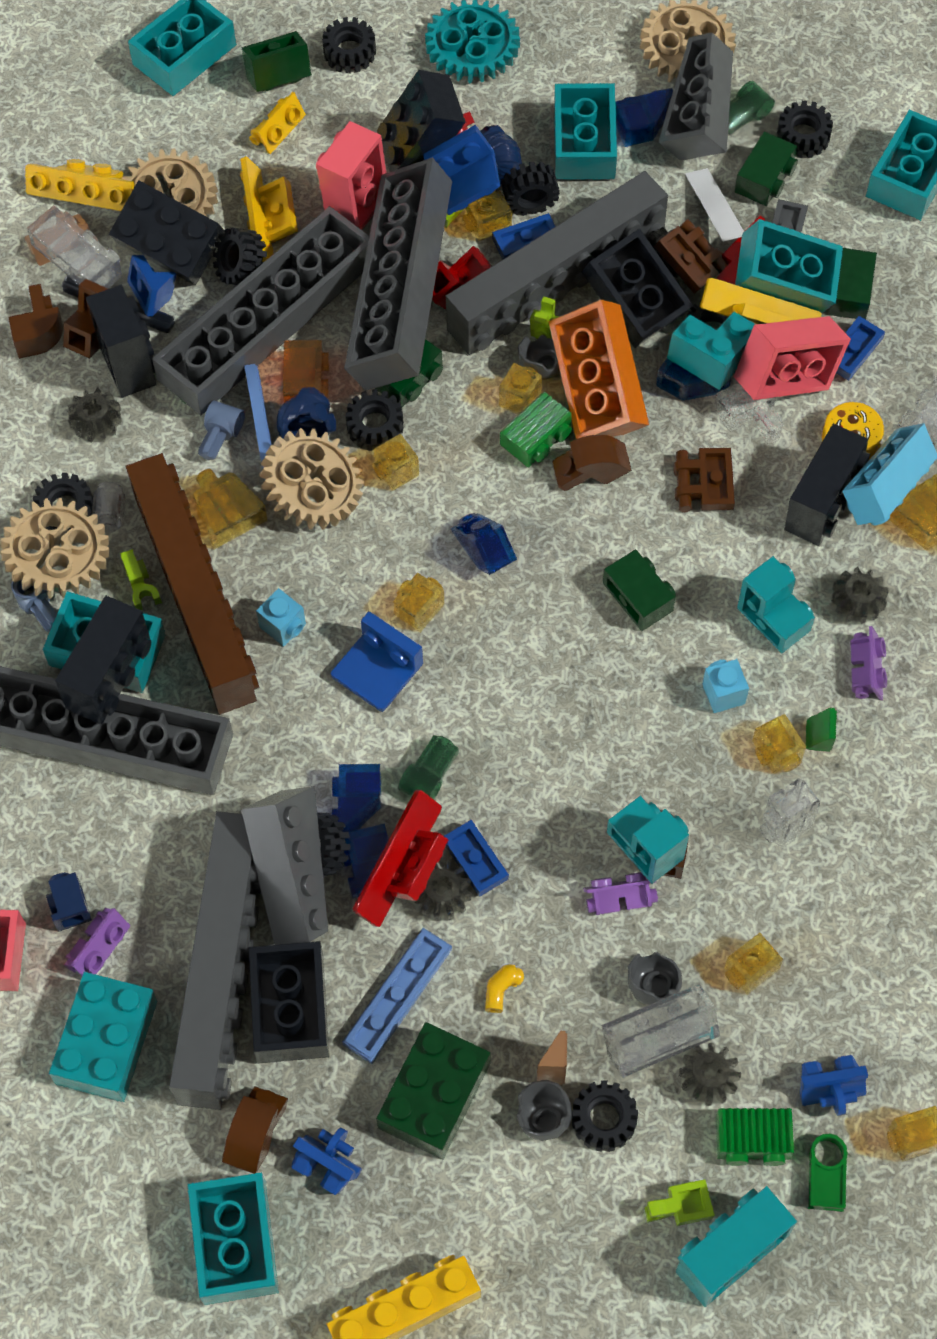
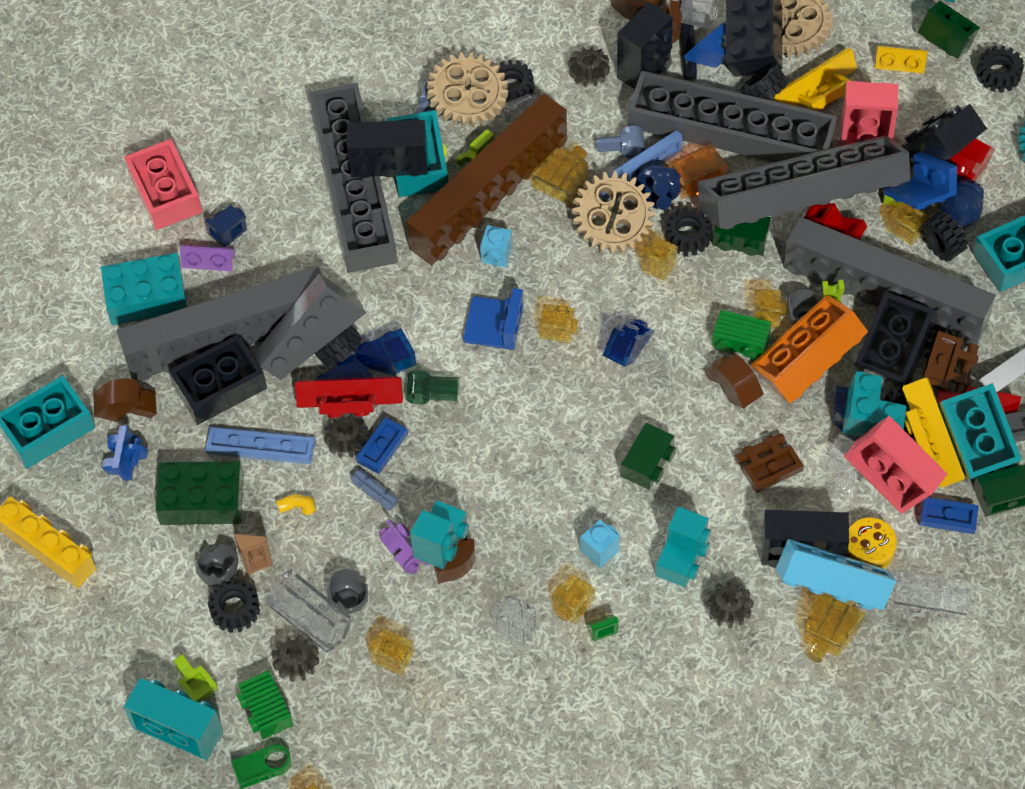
camera: 65 degrees right, 5 degrees down
(519, 235) = (901, 247): blue plate -> none
(527, 893) = (374, 490): none -> sand blue axle
(833, 1087) = (324, 743): blue hips -> none
(868, 651) = (685, 633): medium lavender hinge -> none

